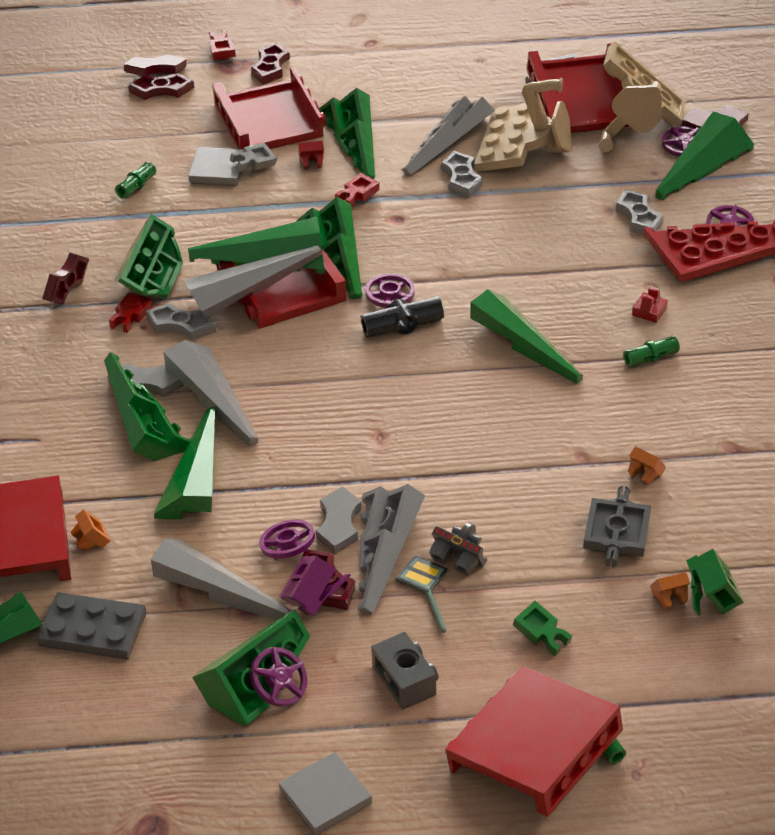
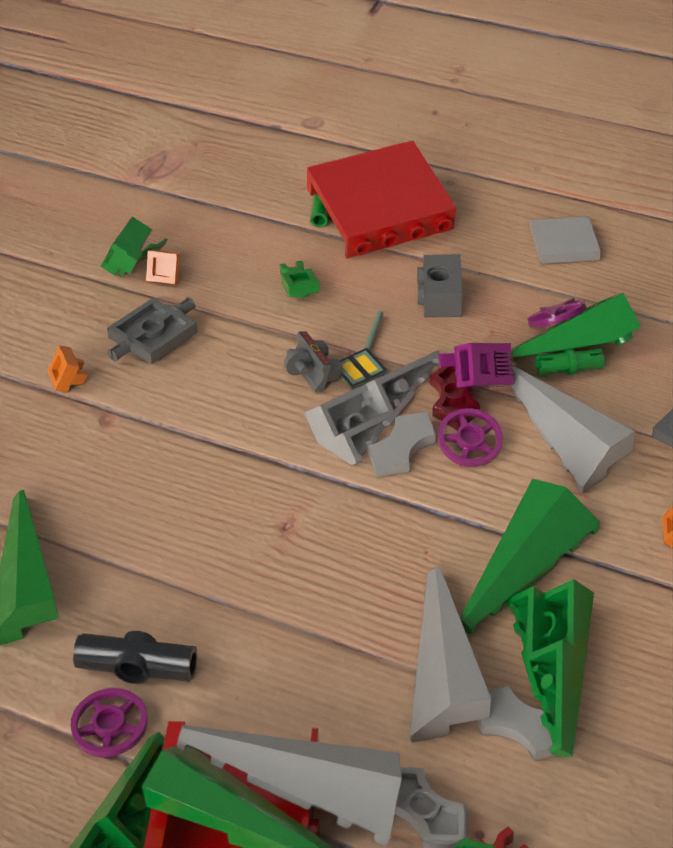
camera: 150 degrees left, 0 degrees up
(242, 635) = (569, 362): none -> green pin

